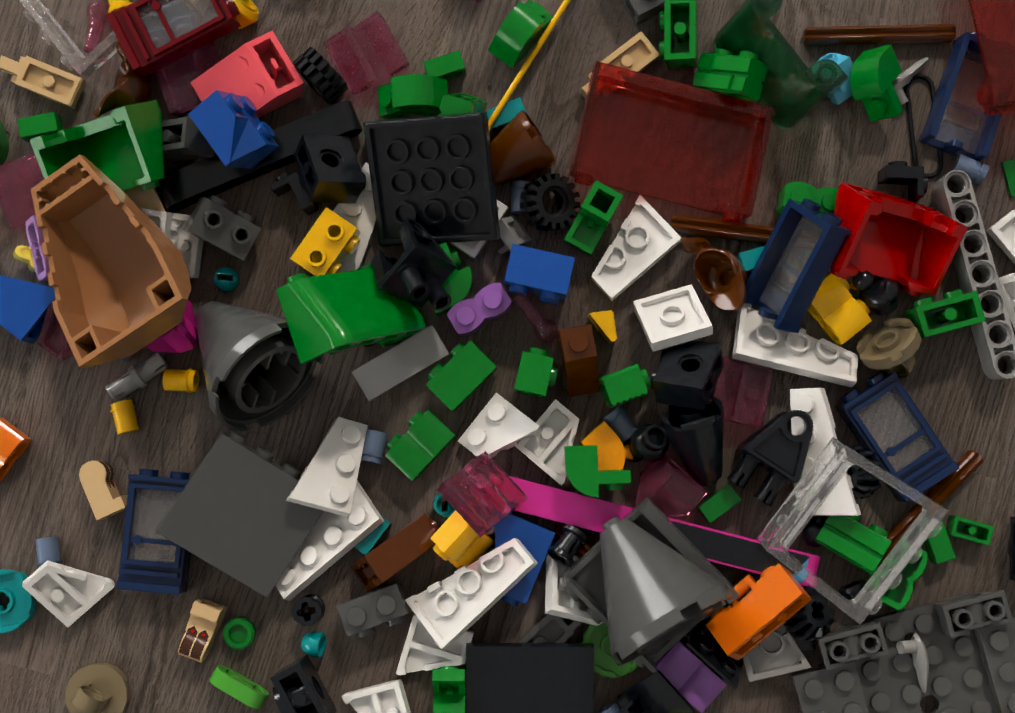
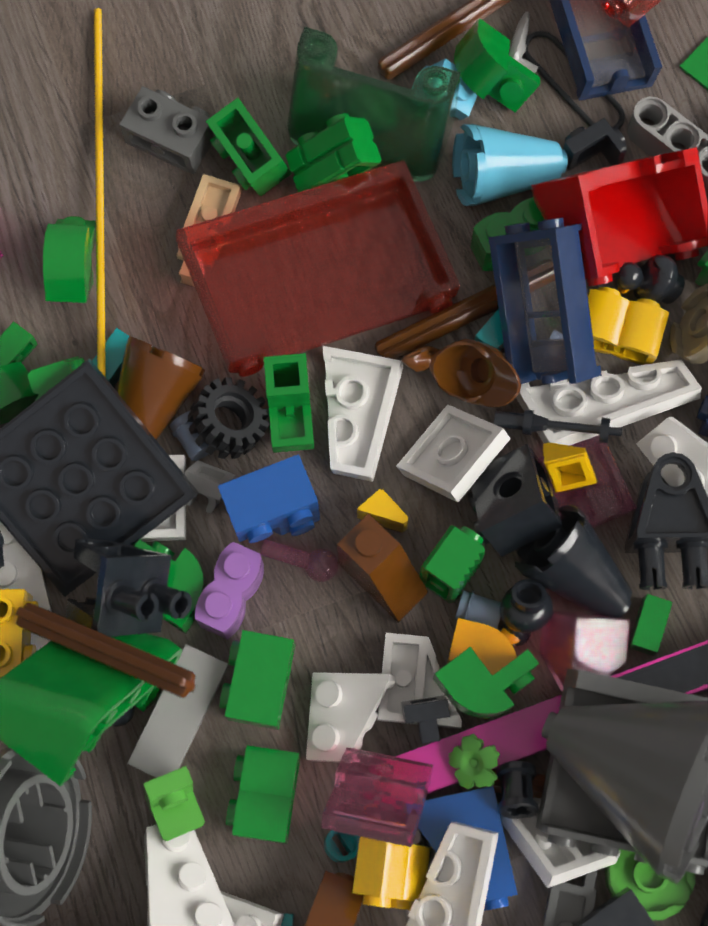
camera: 40 degrees left, 10 degrees down
(362, 416) = (173, 804): none -> bright green slope
(374, 446) = (214, 836): sand blue piece -> none
(379, 301) = (106, 650): none -> reddish brown axle
(535, 373) = (343, 617): green brick -> none
(544, 463) = (426, 713): none -> black tile
(553, 513) = (474, 762): none -> bright green plant
(733, 332) = (531, 422): none -> black piece
(736, 375) = (568, 466): none -> yellow slope
(837, 152) = (502, 163): none -> medium azure cone
(976, 170) = (661, 88): sand blue piece -> none

